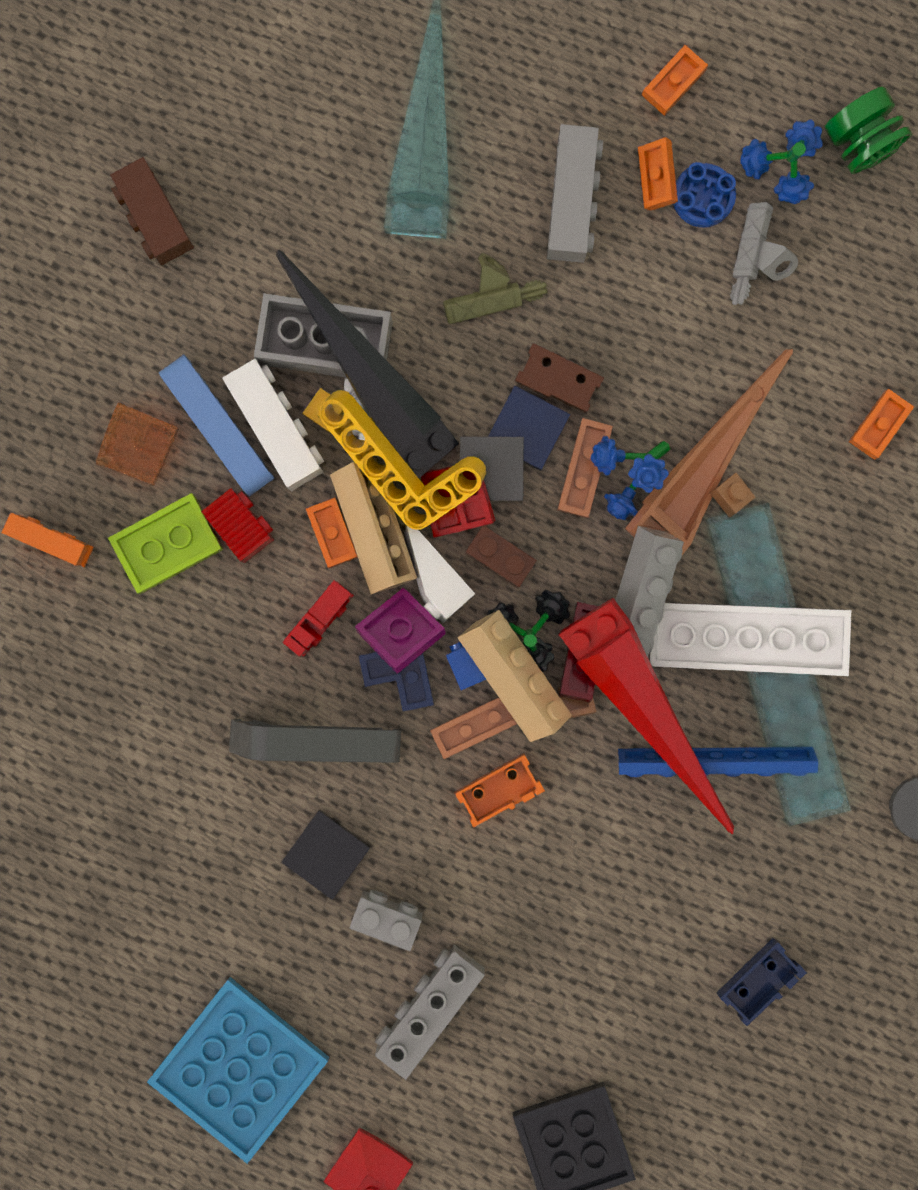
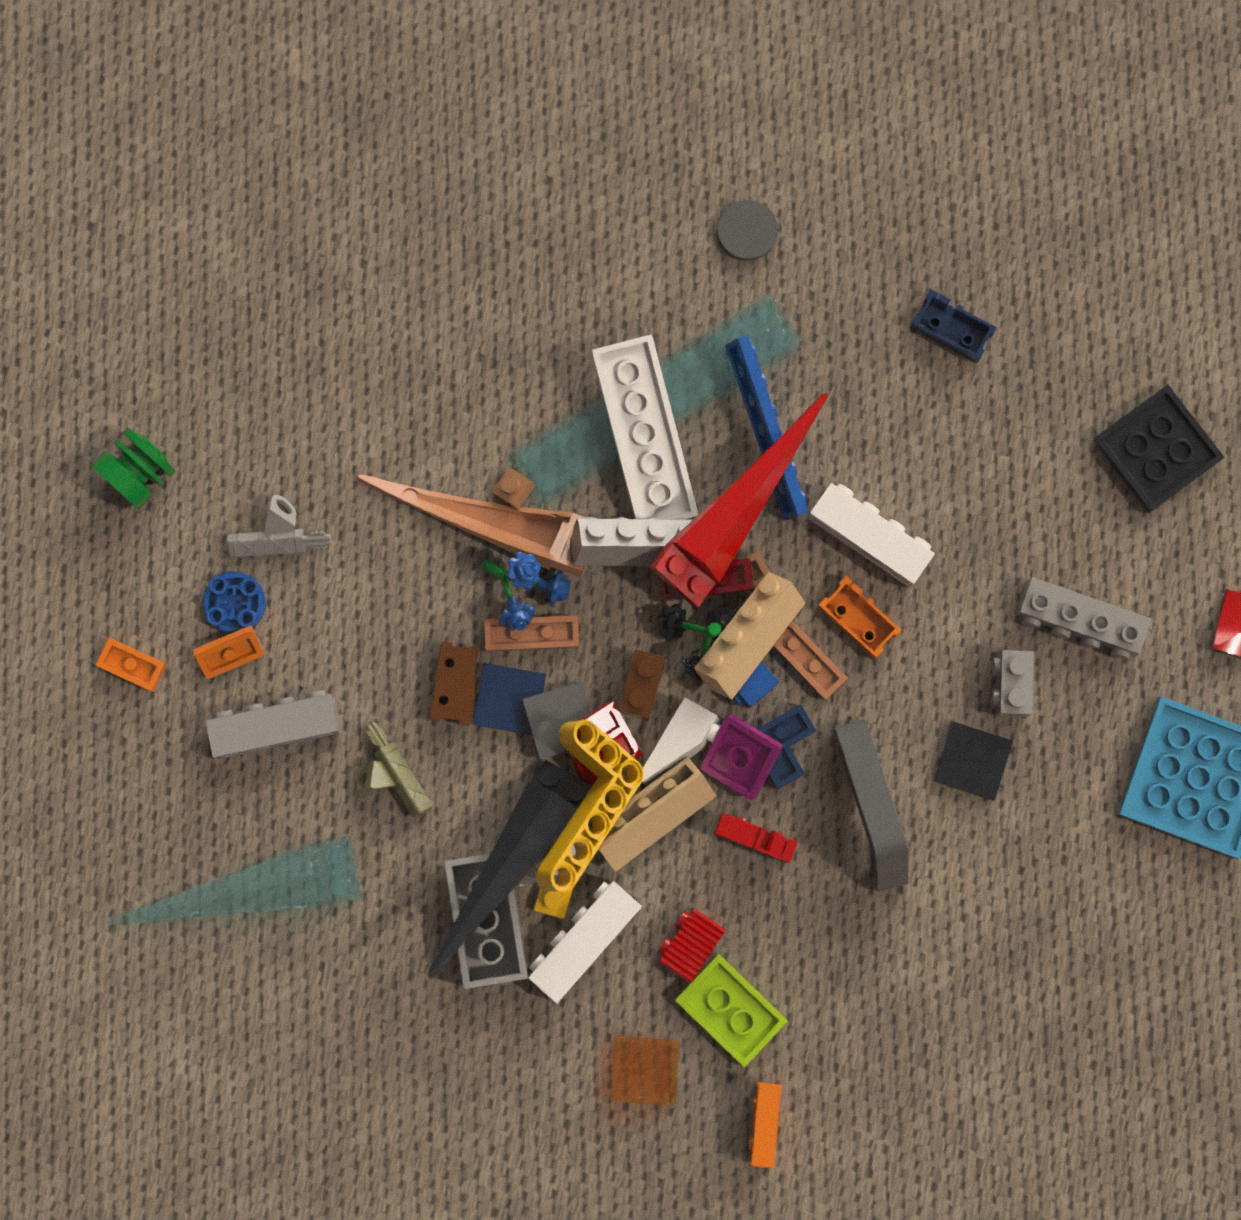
camera: 110 degrees left, 5 degrees down
(150, 212) = (414, 1132): reddish brown brick -> none
(216, 425) = (601, 998): medium blue beam -> none
(331, 533) = (669, 853): orange plate -> none
(577, 829) = (871, 535): none -> white brick
(802, 141) = (202, 519): blue plant -> none
(881, 424) = (404, 372): orange plate -> none

